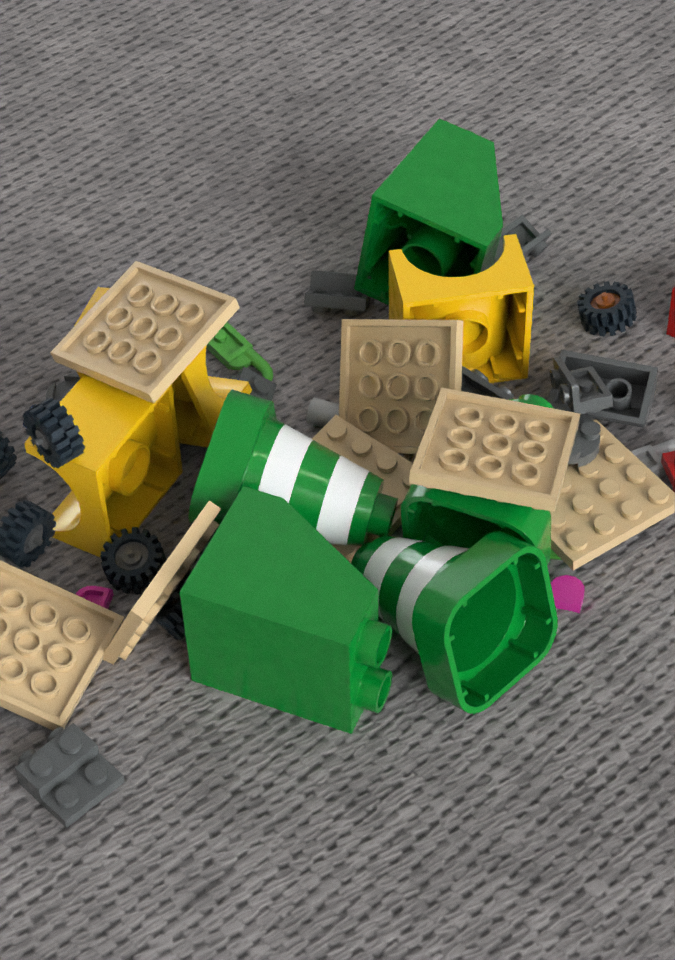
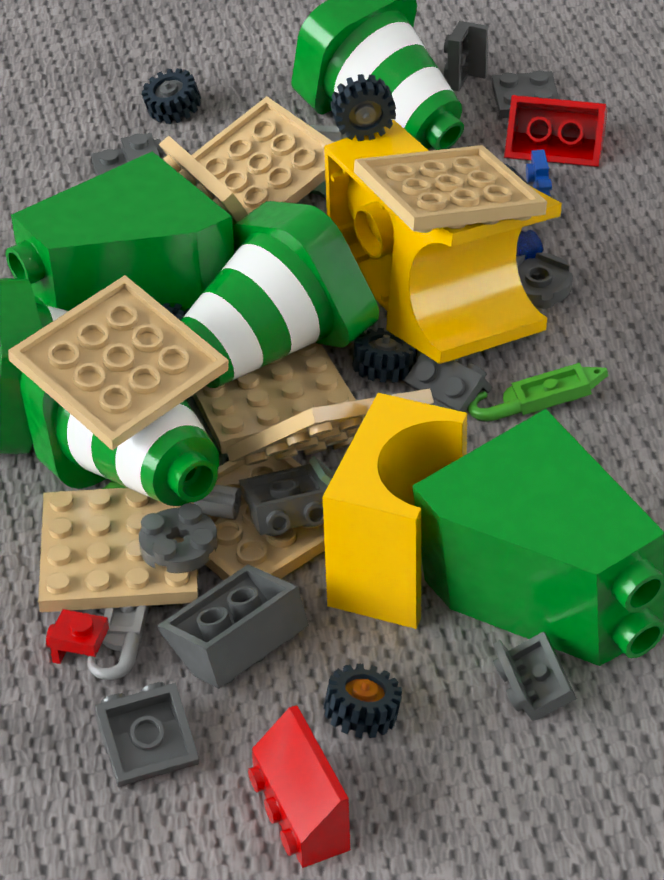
camera: 120 degrees right, 5 degrees down
(568, 593) = (29, 498): dark pink tile -> none
(580, 388) = (220, 556): dark grey bracket -> none

